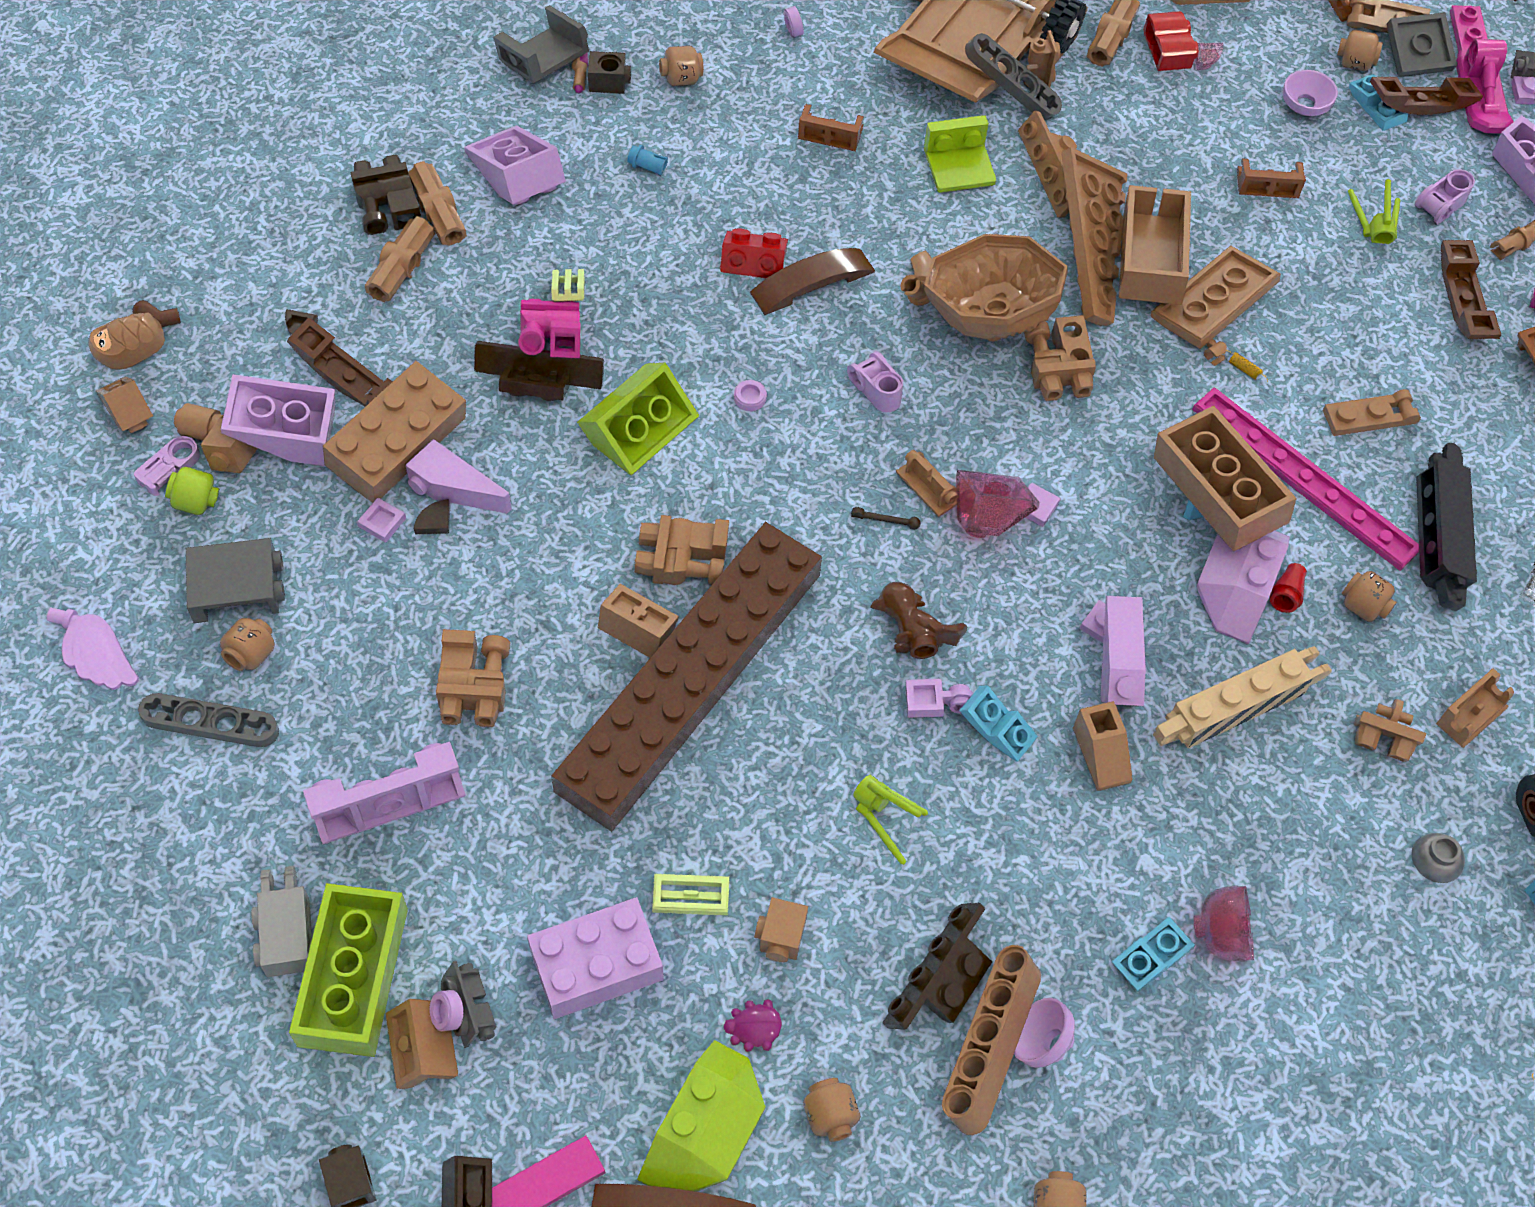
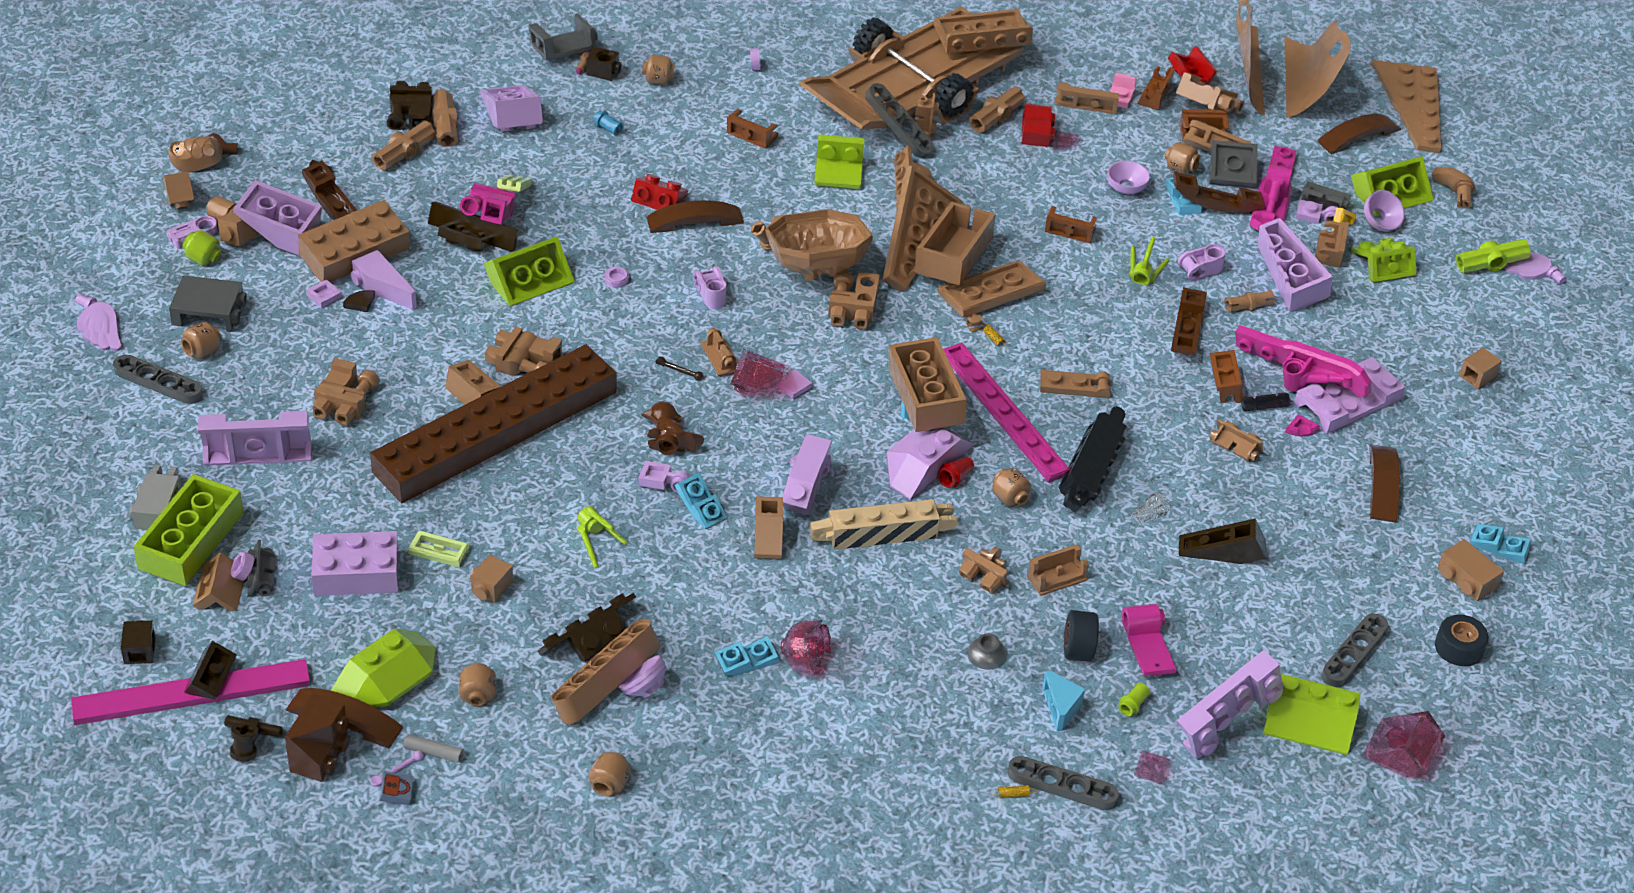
camera: 15 degrees right, 15 degrees down
(754, 1026) = (447, 630): magenta piece -> none

